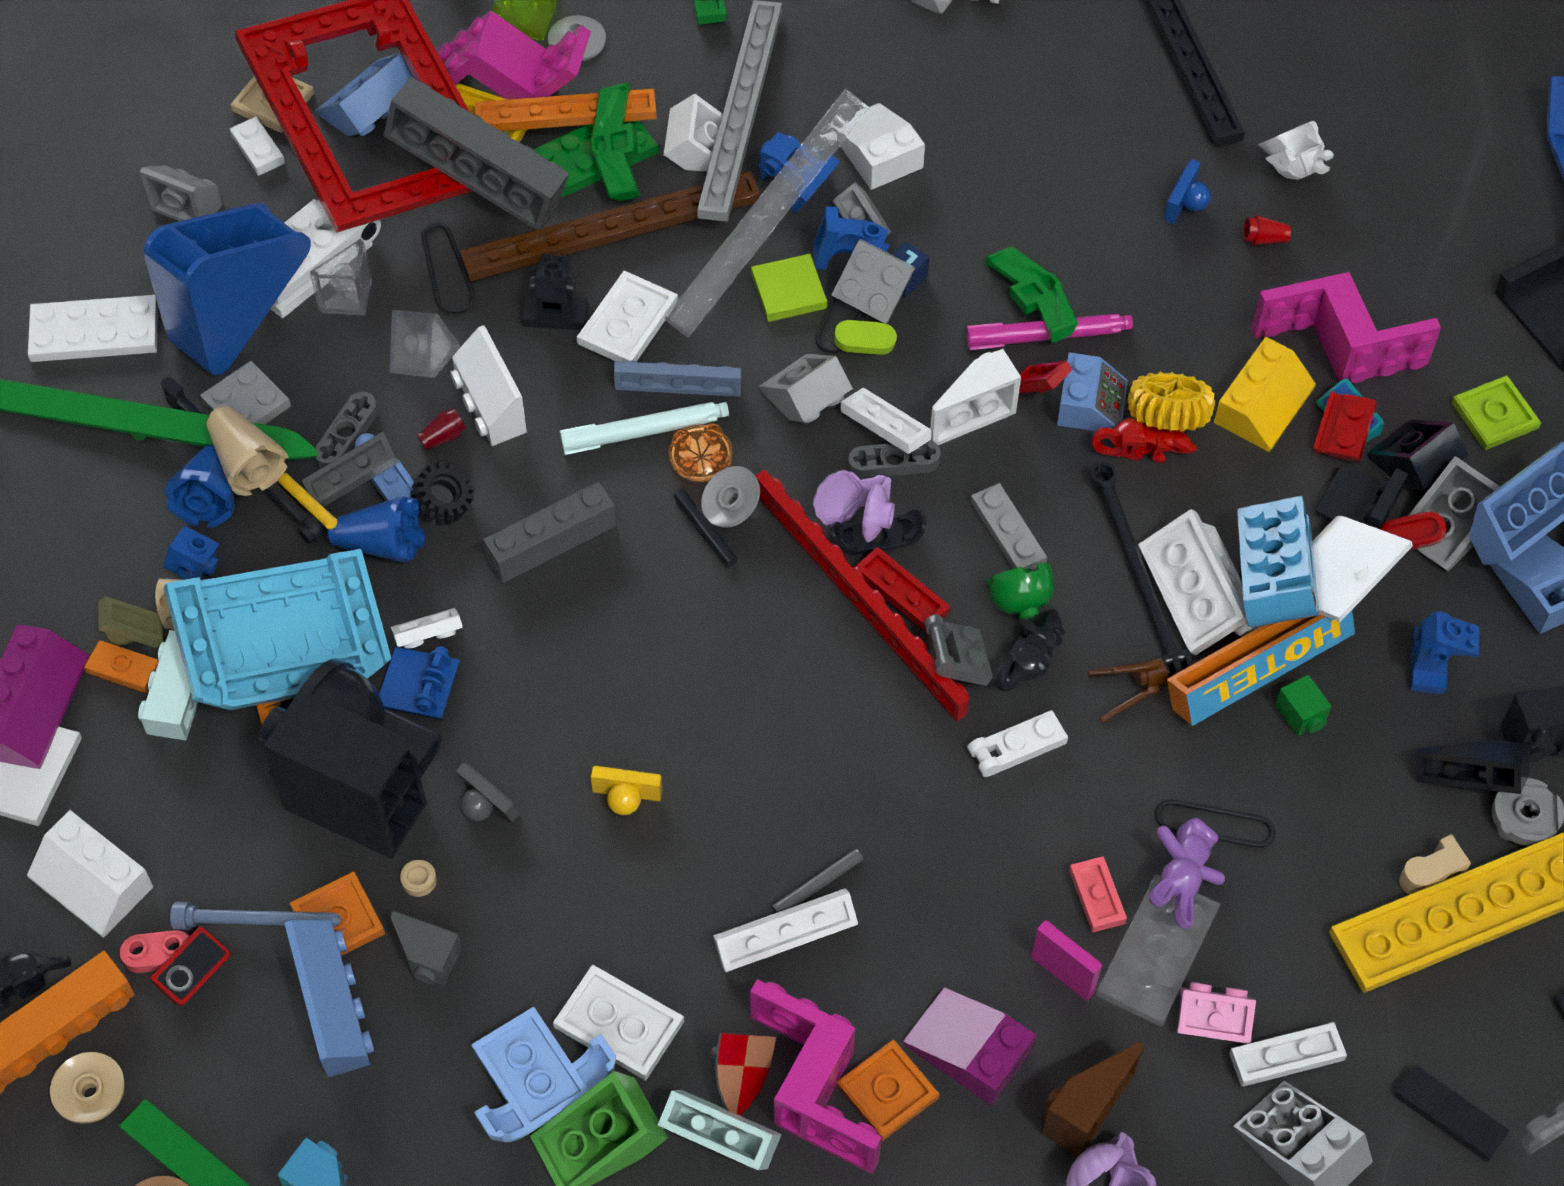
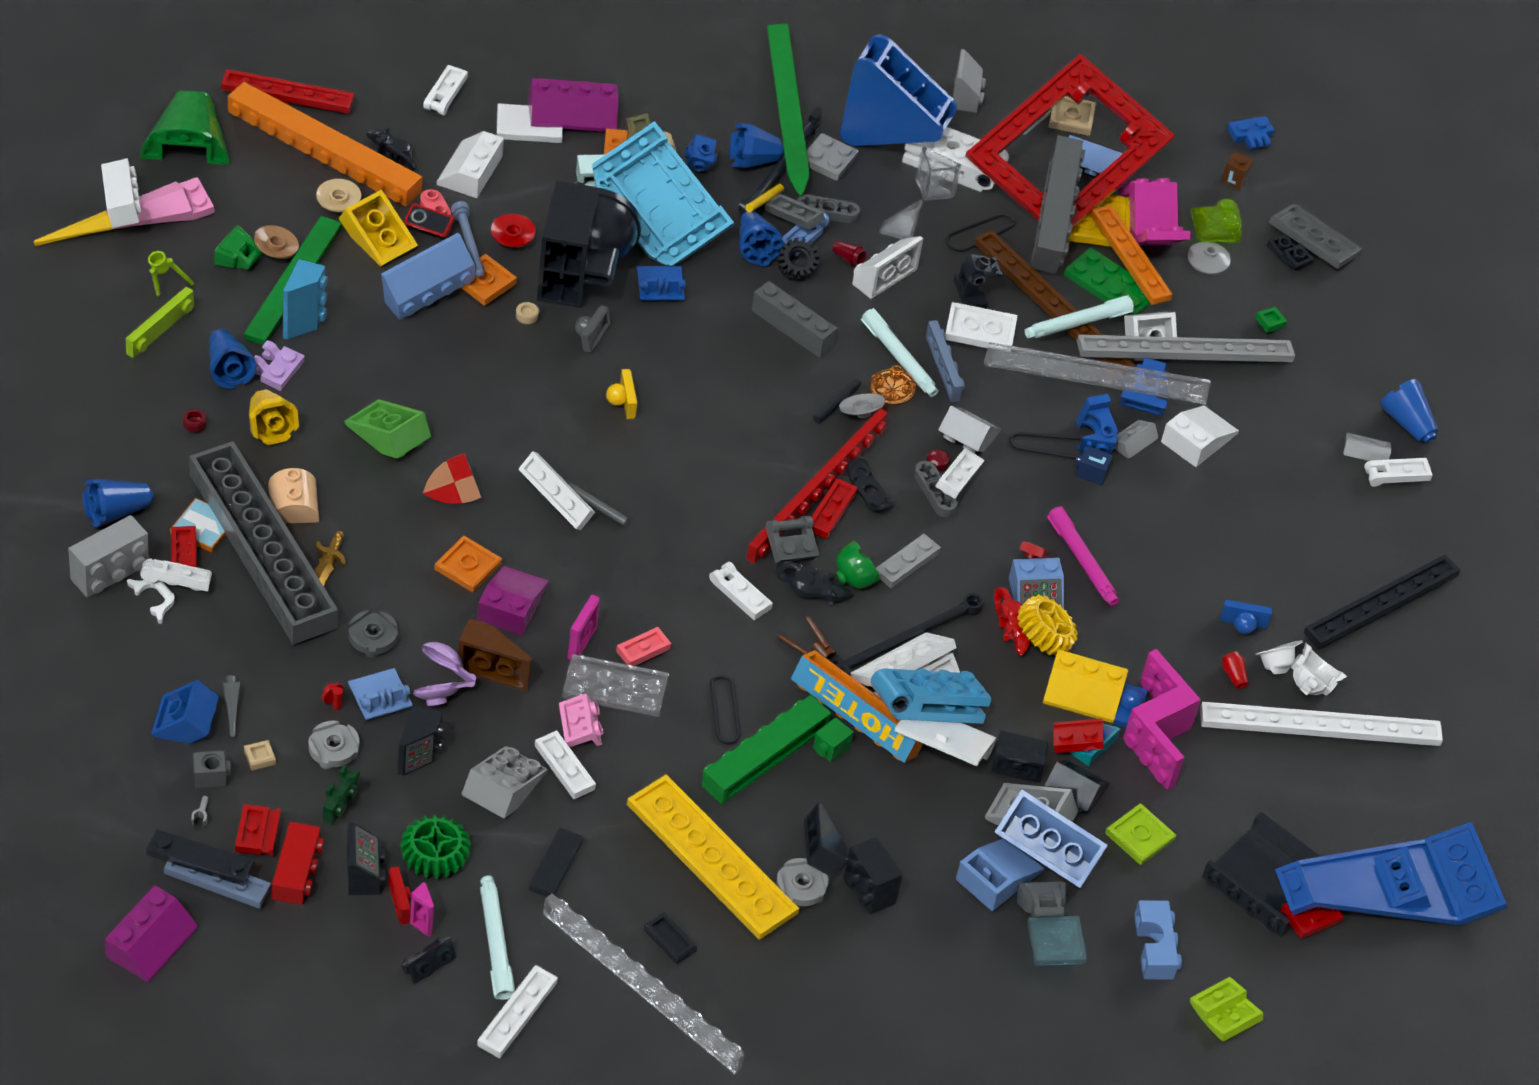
camera: 65 degrees right, 10 degrees down
(93, 328) = (838, 64): white plate -> none
(181, 1046) = (377, 228): none -> yellow slope
(245, 451) = (777, 152): tan cone -> none
(249, 838) = (513, 230): none -> red dish
(427, 948) = (478, 322): dark grey slope -> none
(439, 624) = (694, 271): white plate -> none
(535, 1075) = (415, 388): light blue piece -> none
(615, 142) = (1116, 283): green plate -> none
(628, 1020) = (465, 423): white plate -> none
(653, 162) = (1110, 309): none -> light aqua piece
(719, 1129) = (408, 478): light aqua brick -> none
(788, 287) = (1050, 409): lime tile -> none
(813, 1077) = (459, 513): dark pink bracket -> none
(843, 440) = (939, 459): none -> dark red tile
(845, 493) = (884, 466): lavender animal -> none
(865, 337) = (1028, 455): lime tile -> none
(873, 281) = (1069, 443): light grey plate -> none
(977, 398) = (996, 513): white slope -> none
(1035, 290) = (1110, 541): green plate -> none
(1187, 870) = (668, 679): medium lavender animal -> none
(1254, 175) = (1279, 658): none -> white piece
(1305, 791) = (765, 749): none -> green brick
(1315, 362) = (1130, 698): none -> blue tile
(1363, 170) = (1321, 723): none -> white plate
(1422, 529) = (1004, 786): red tile -> none
(1433, 644) = (910, 800): blue tile -> none
(1443, 864) = (736, 830): tan leg -> none

